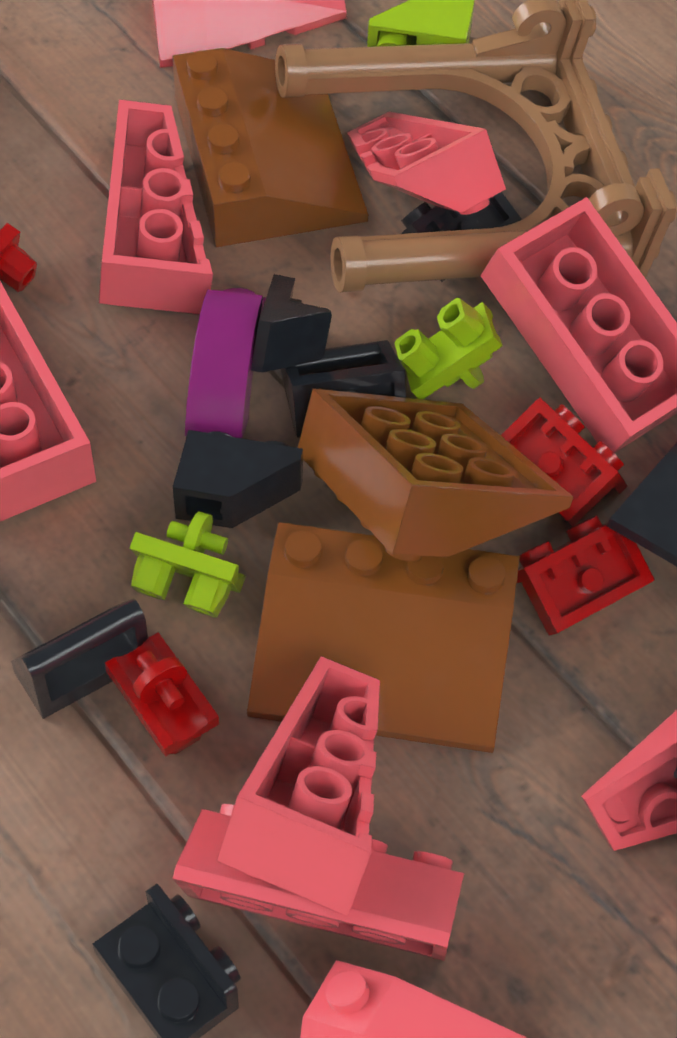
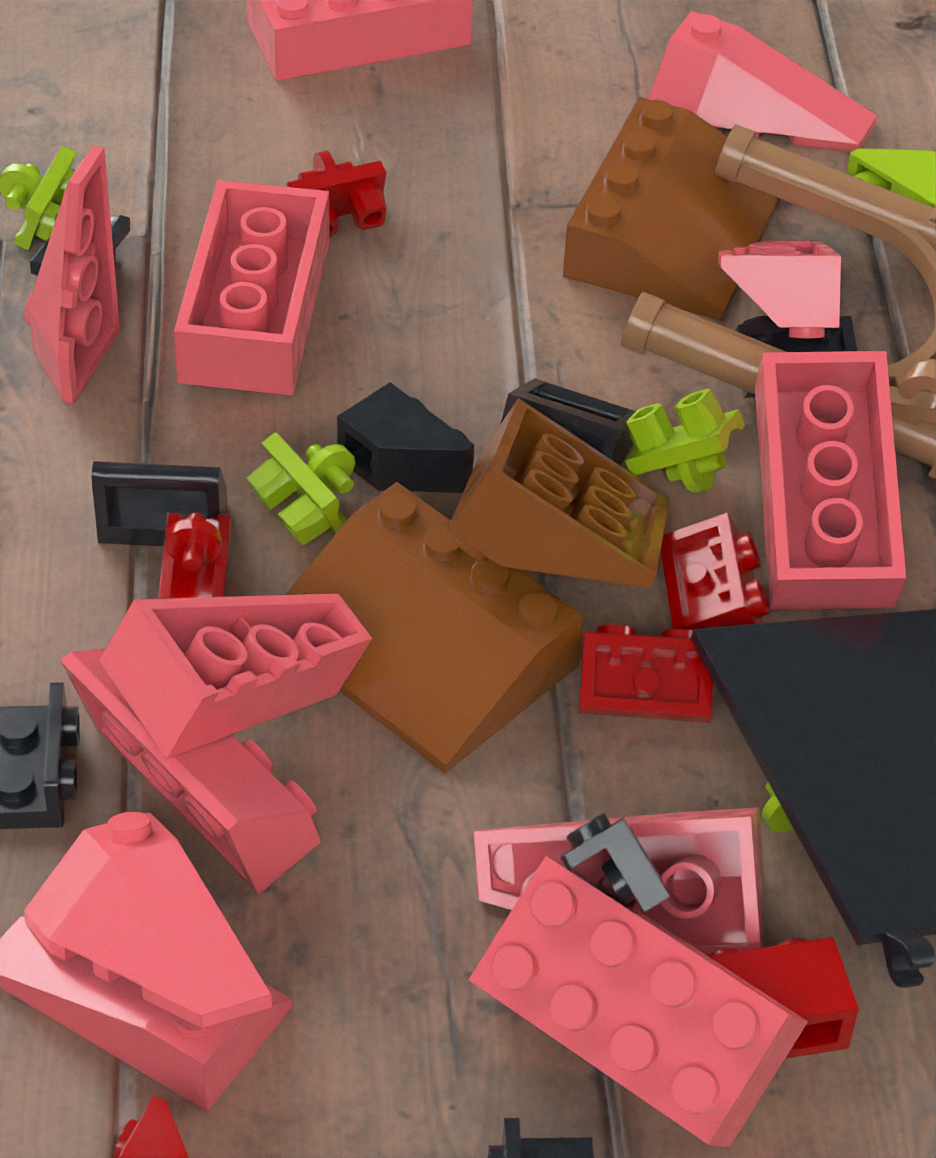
camera: 35 degrees right, 10 degrees down
(151, 229) = (506, 215): coral wedge -> none
(223, 362) = (472, 346): magenta arch -> none
(289, 330) = (545, 350): black slope -> none

